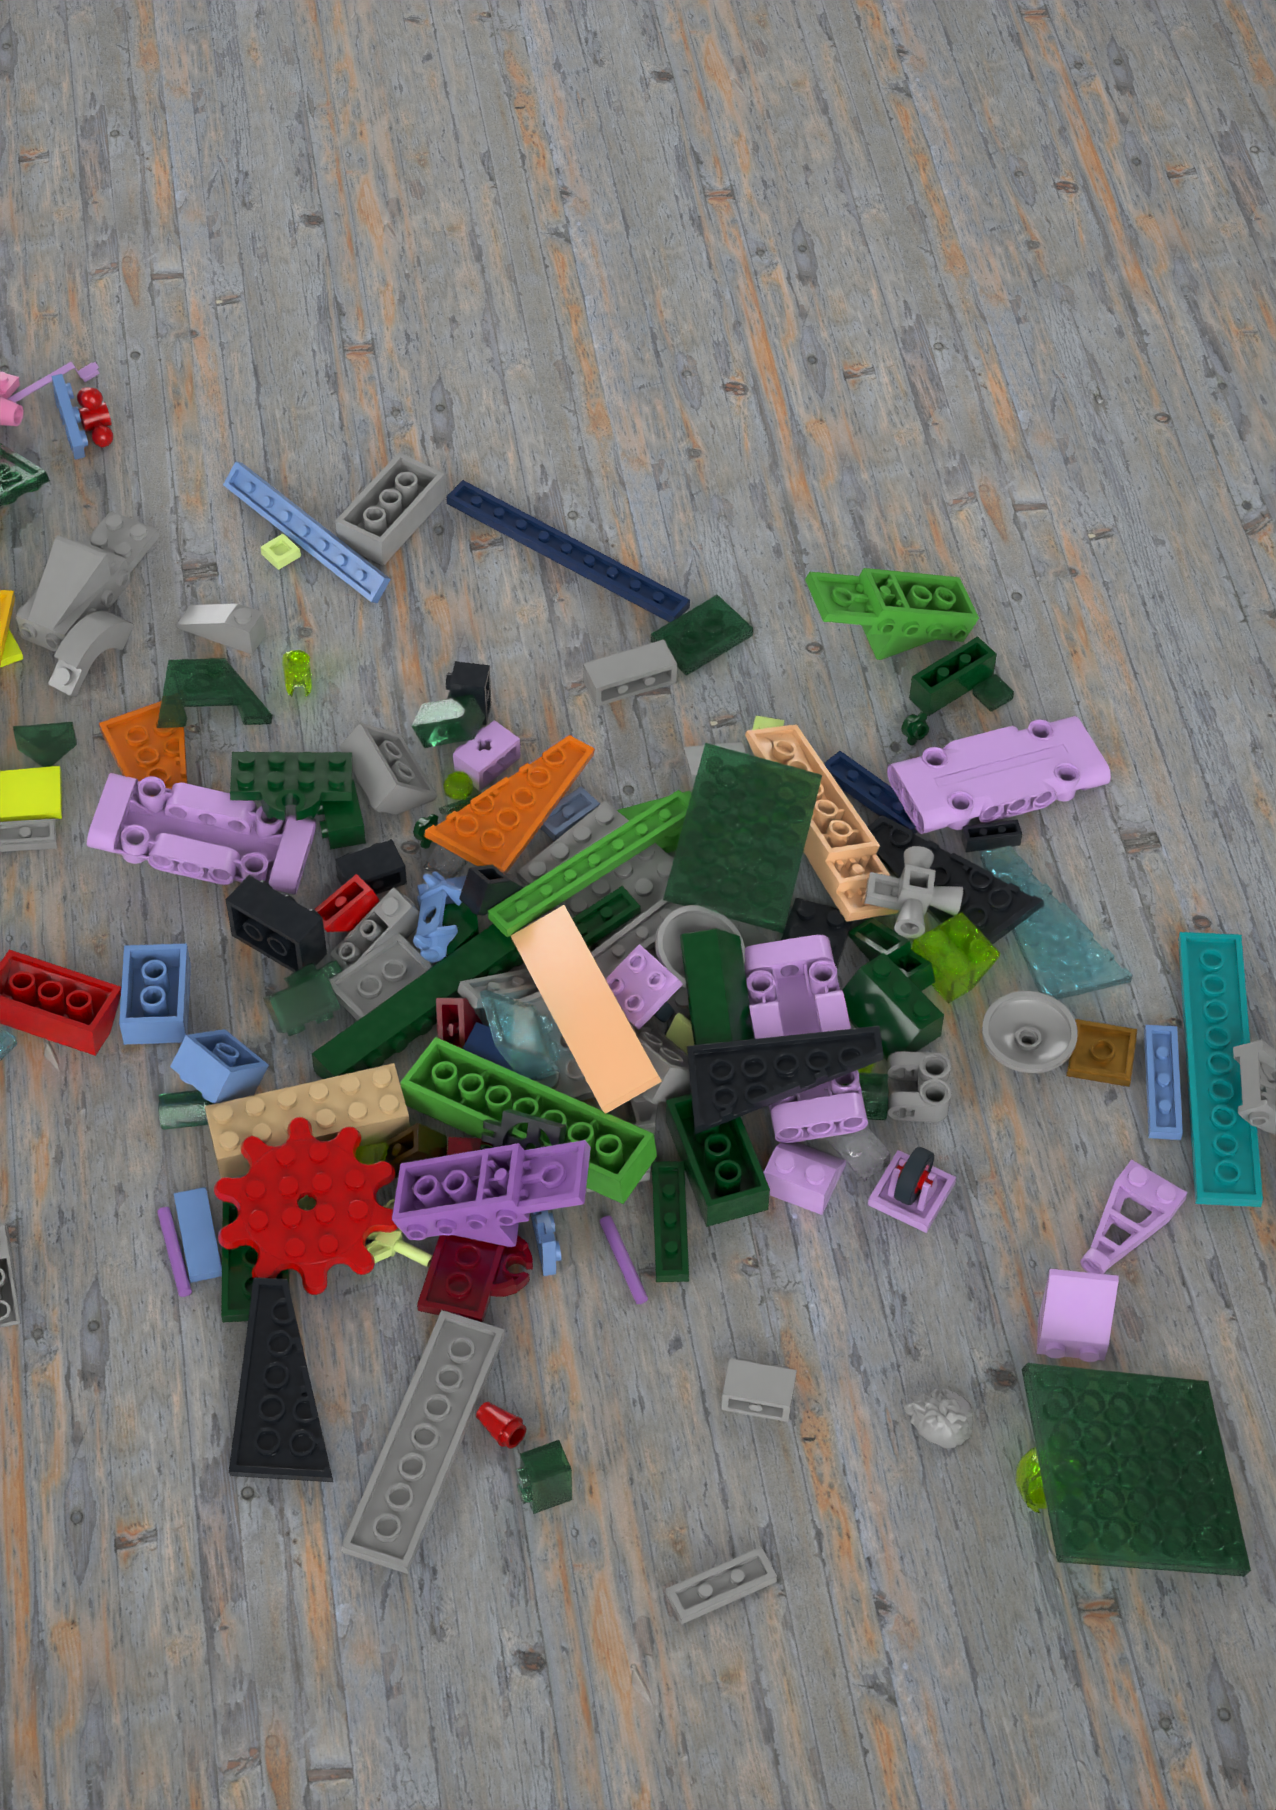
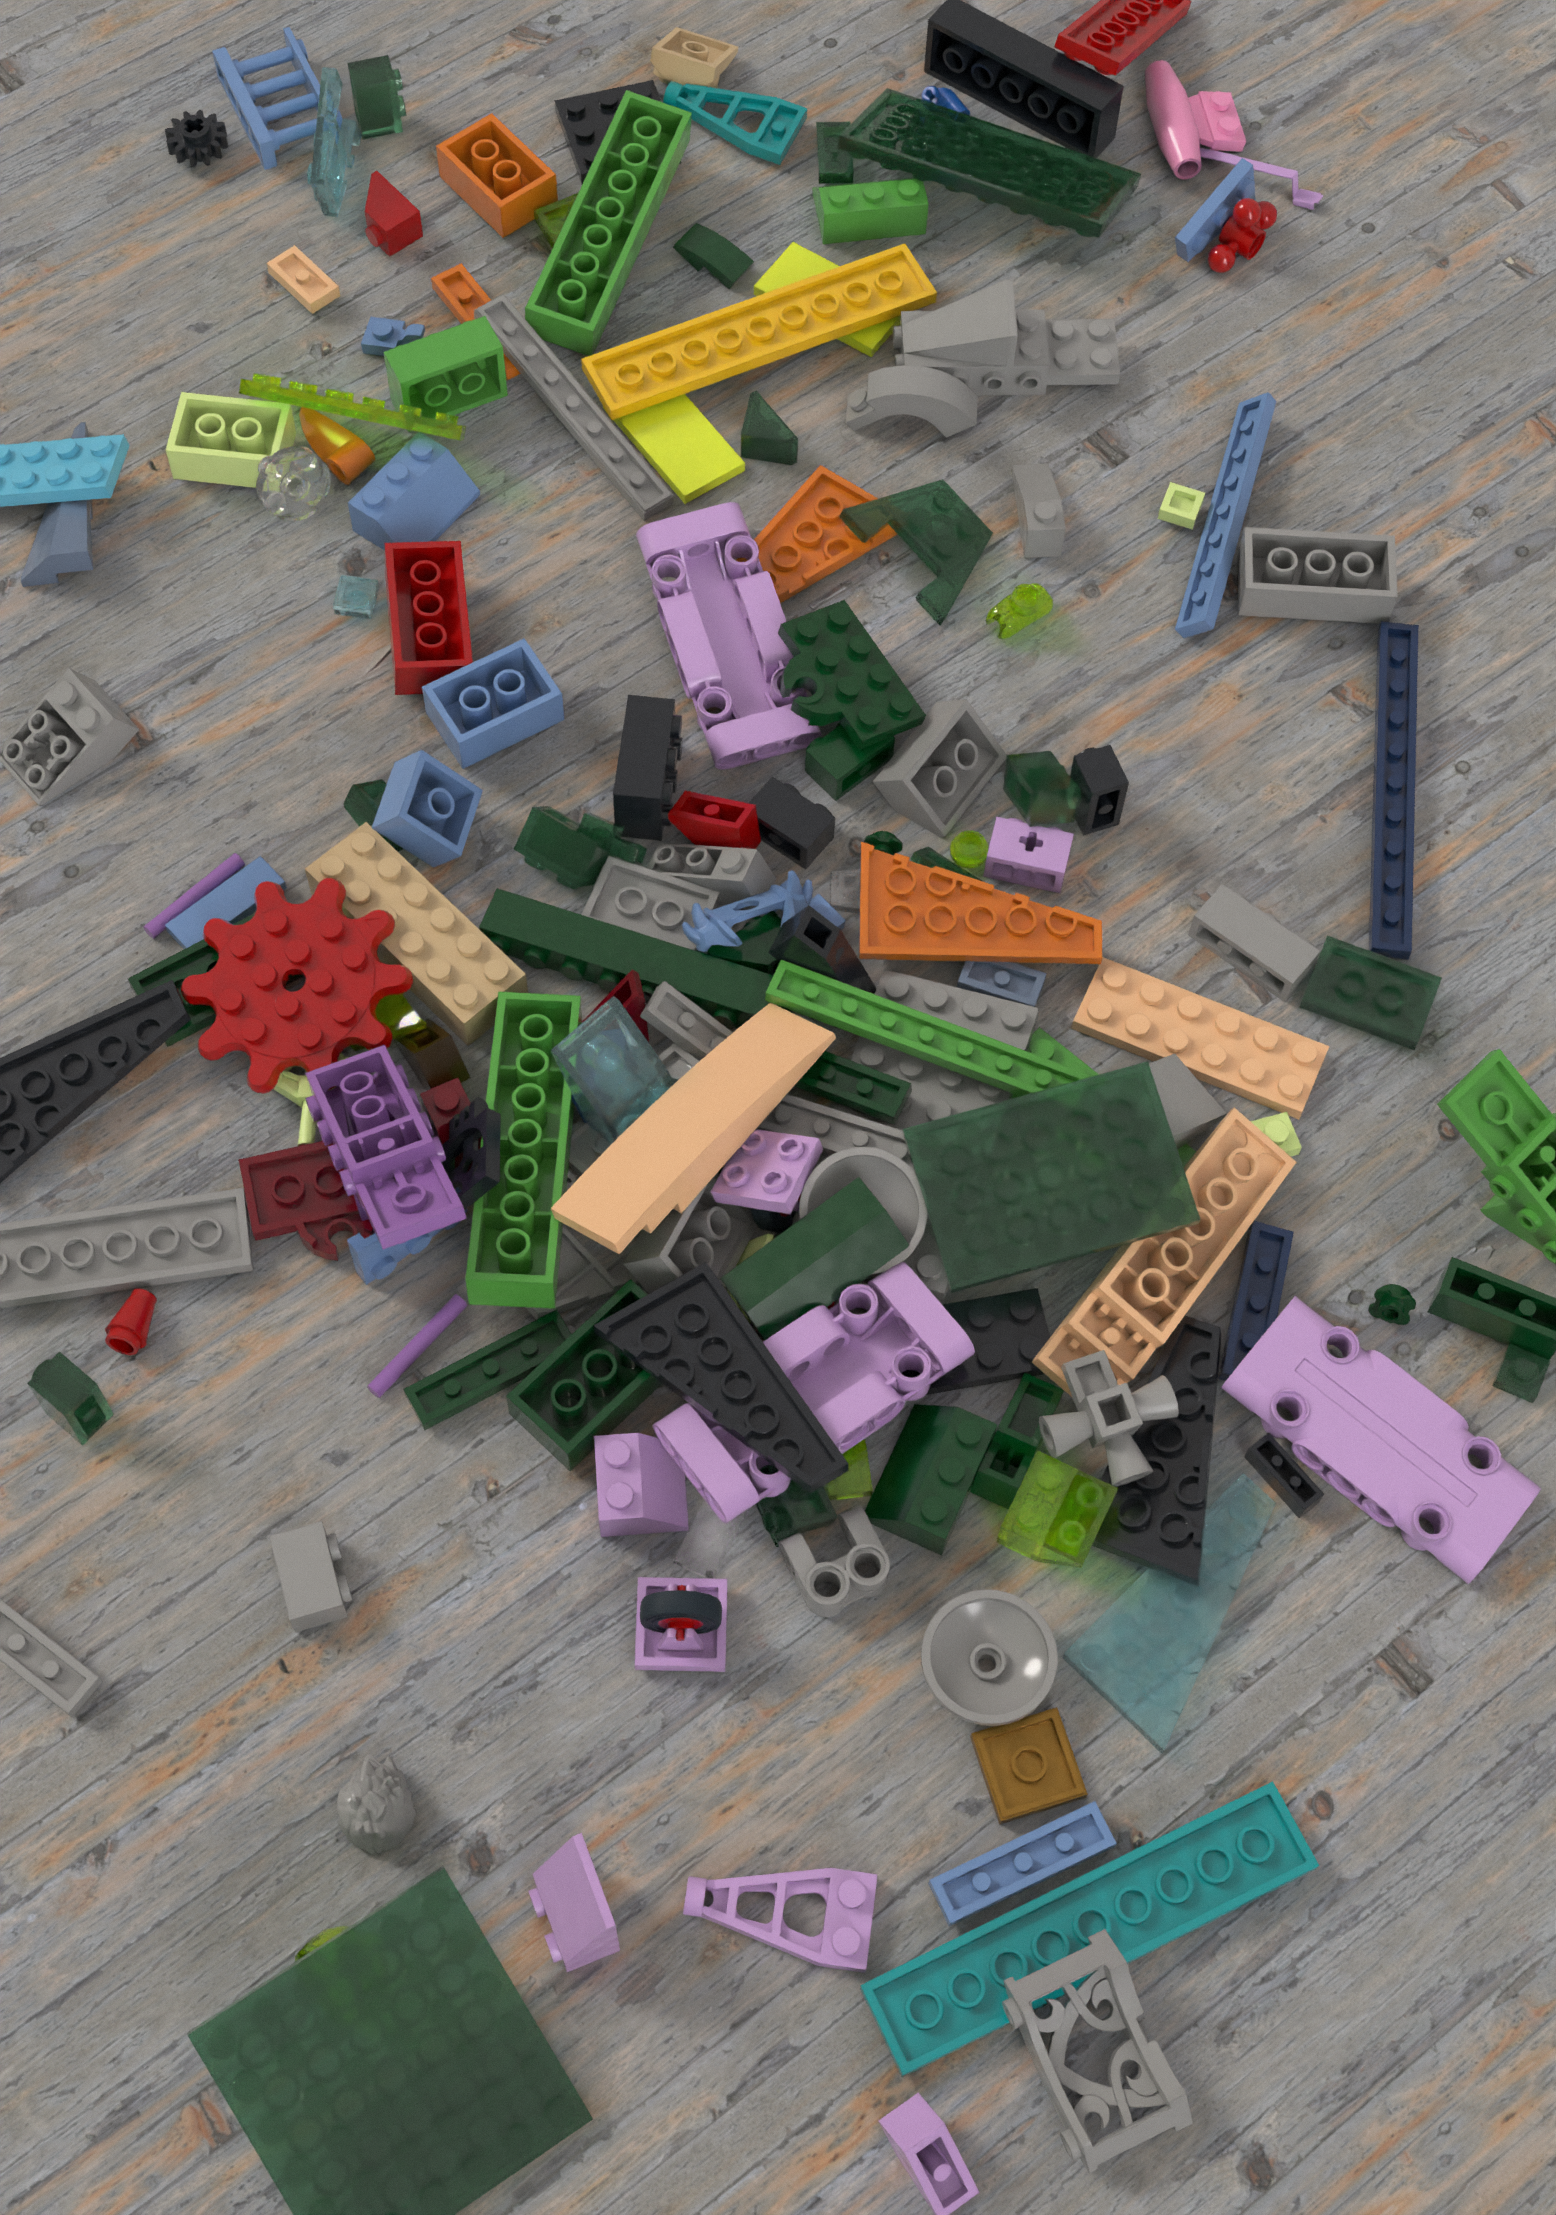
camera: 60 degrees right, 10 degrees up
(660, 740) = (1208, 1037): none -> light nougat plate

